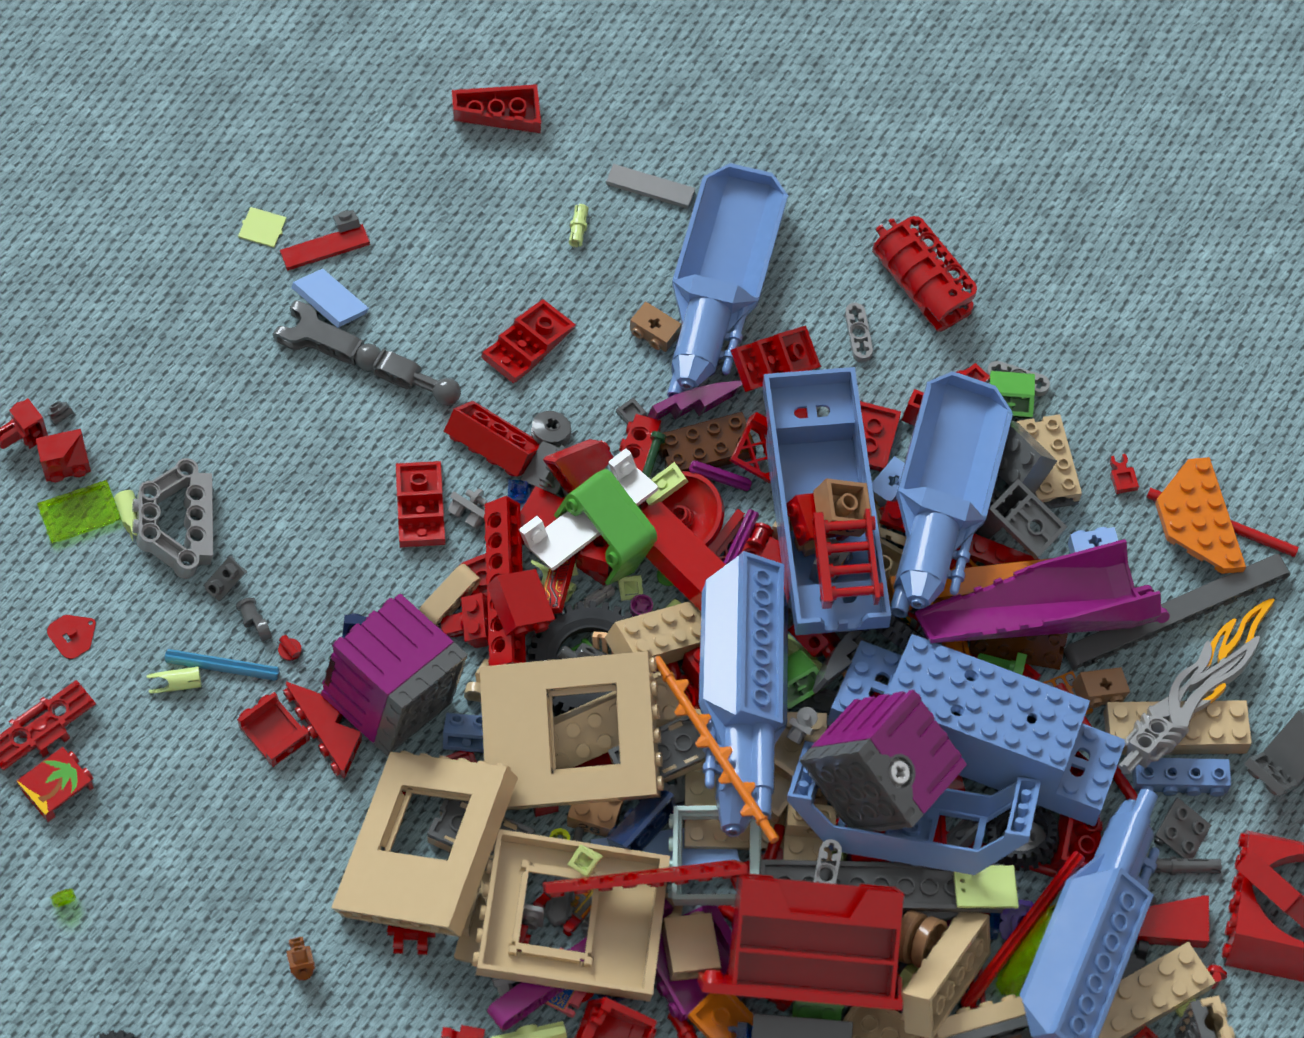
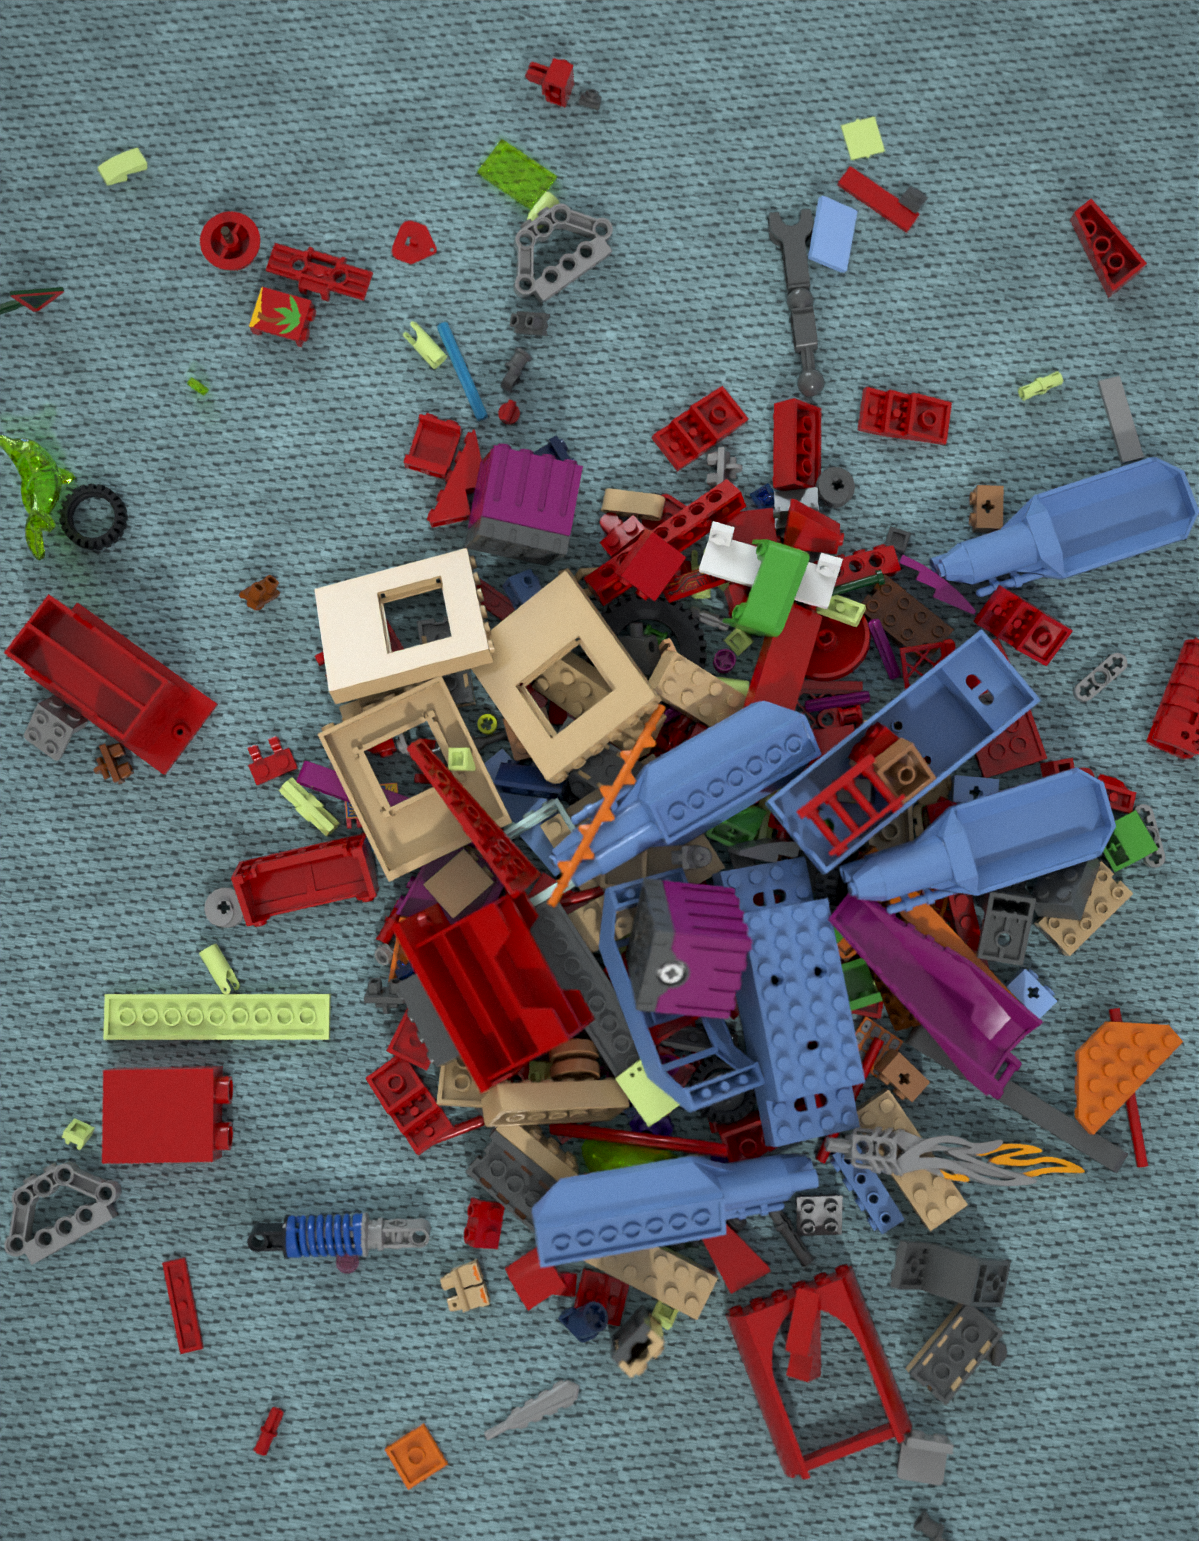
camera: 60 degrees right, 20 degrees up
(63, 455) = (550, 128): red slope -> none
(822, 855) = (585, 944): light grey beam -> none
(1123, 478) = (1113, 980): red plate -> none
(1217, 974) = (707, 1313): red plate -> none

